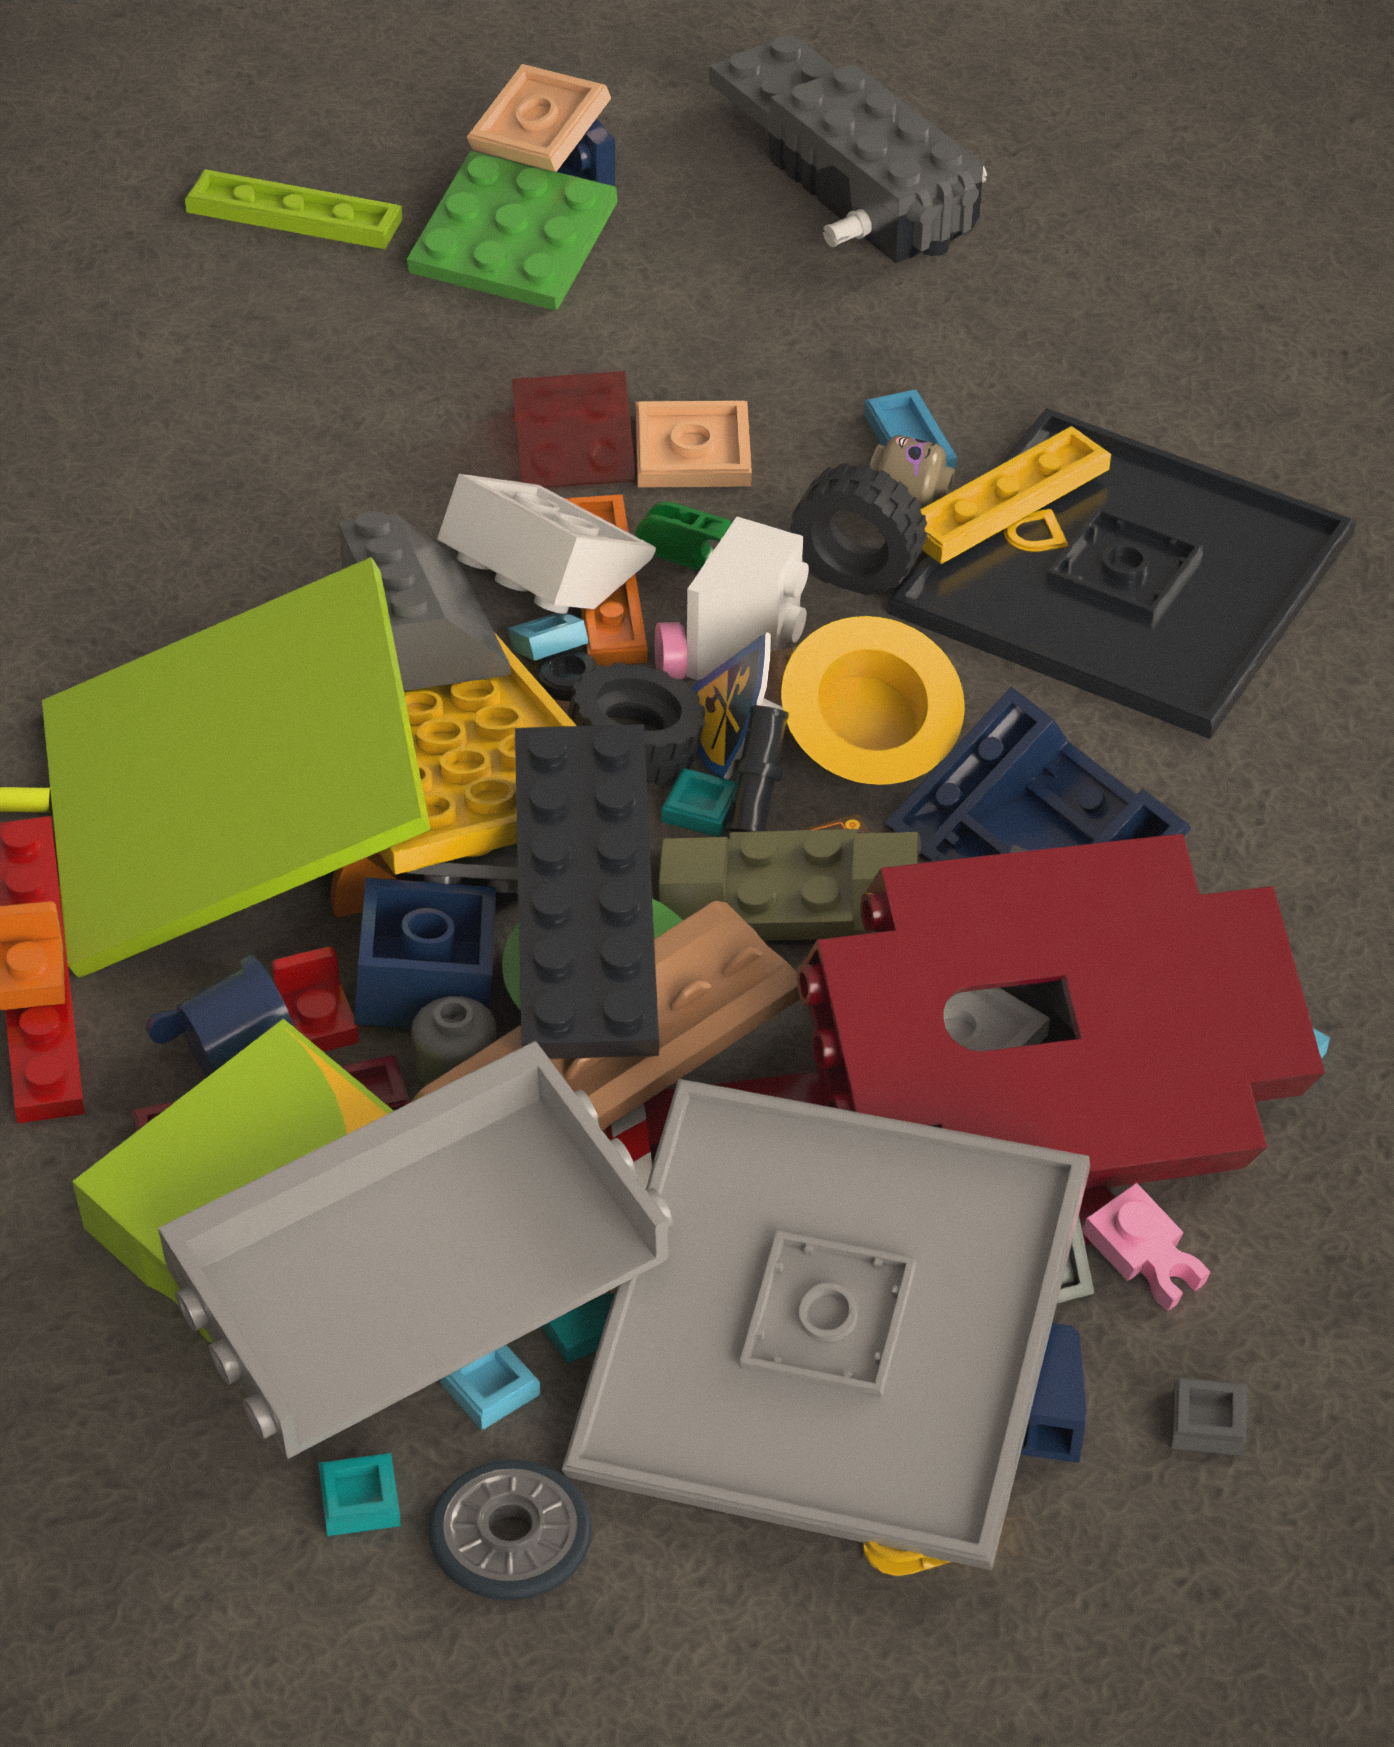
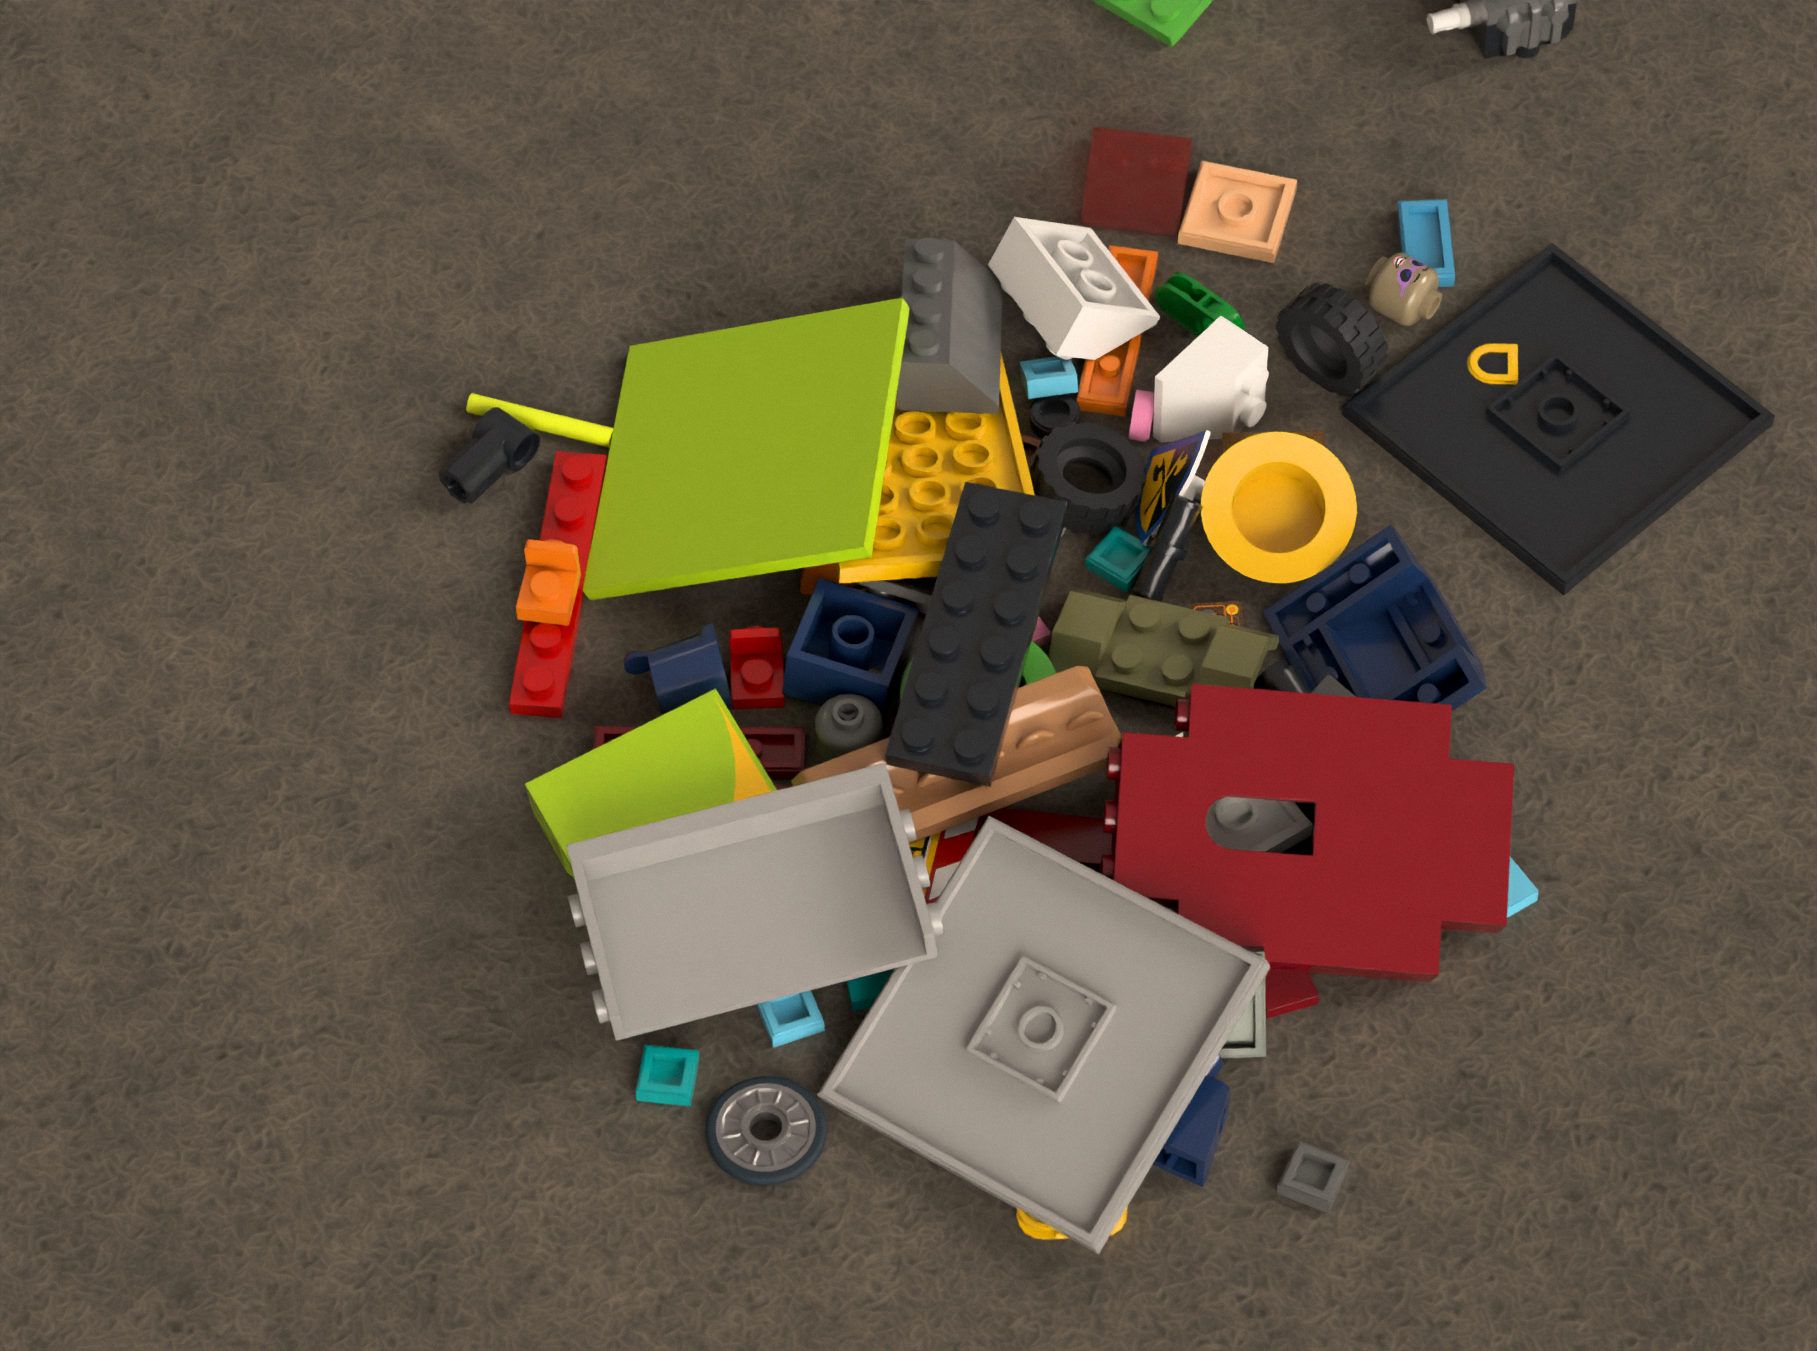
camera: 20 degrees right, 10 degrees up
(1011, 492) = (1481, 325): yellow tile -> none
(1143, 1239) = (1316, 1023): bright pink plate -> none

